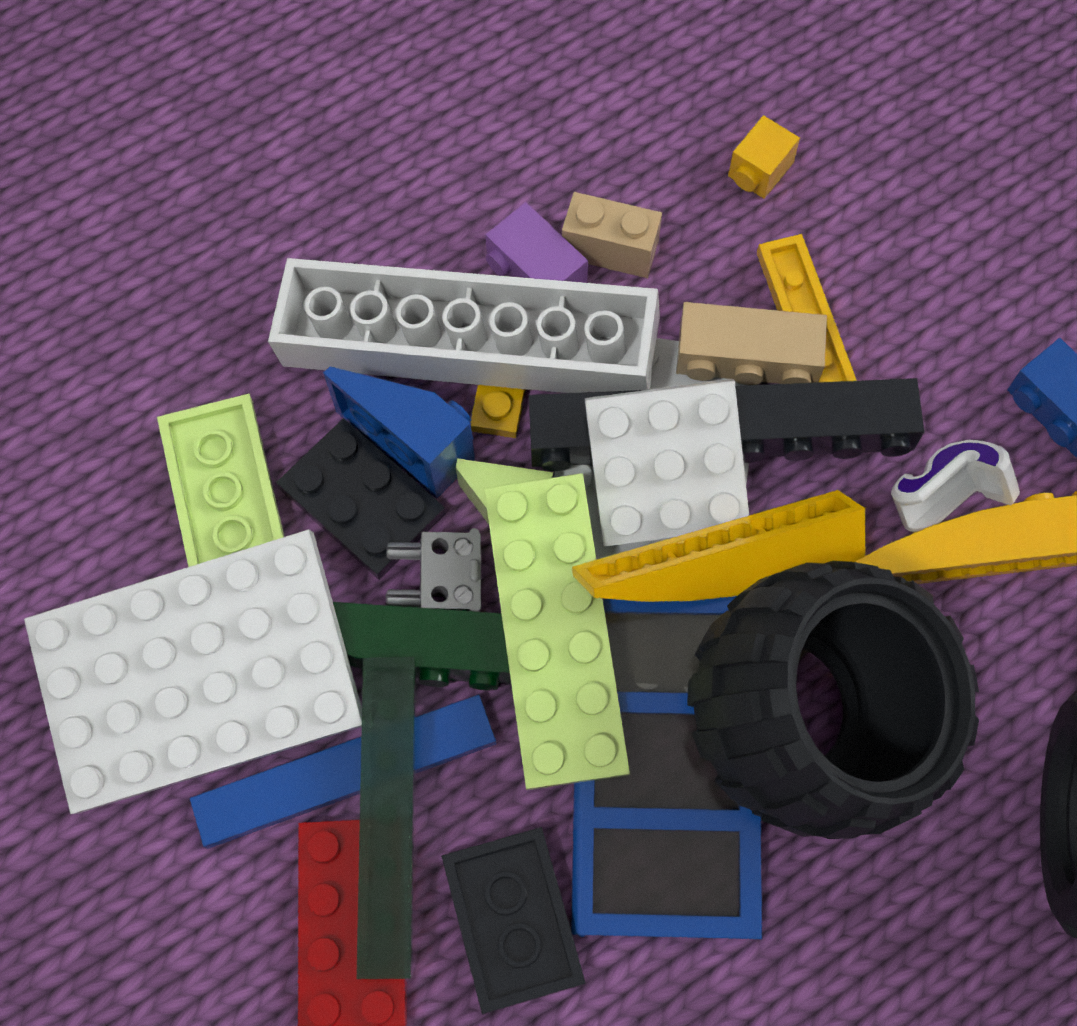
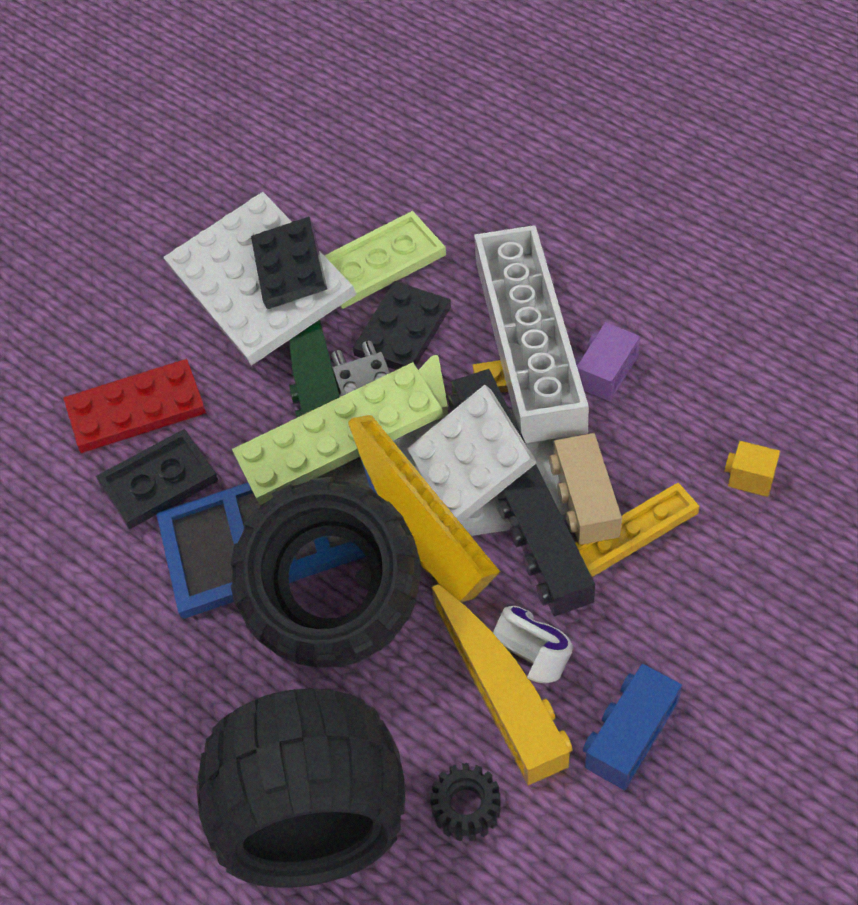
camera: 75 degrees right, 15 degrees down
(218, 610) = (288, 263): none -> black plate
(331, 775) = (224, 371): blue tile -> none
(386, 819) = (197, 389): clear green tile -> none
(406, 425) = (443, 327): blue slope -> none
(613, 233) = (643, 395): tan brick -> none

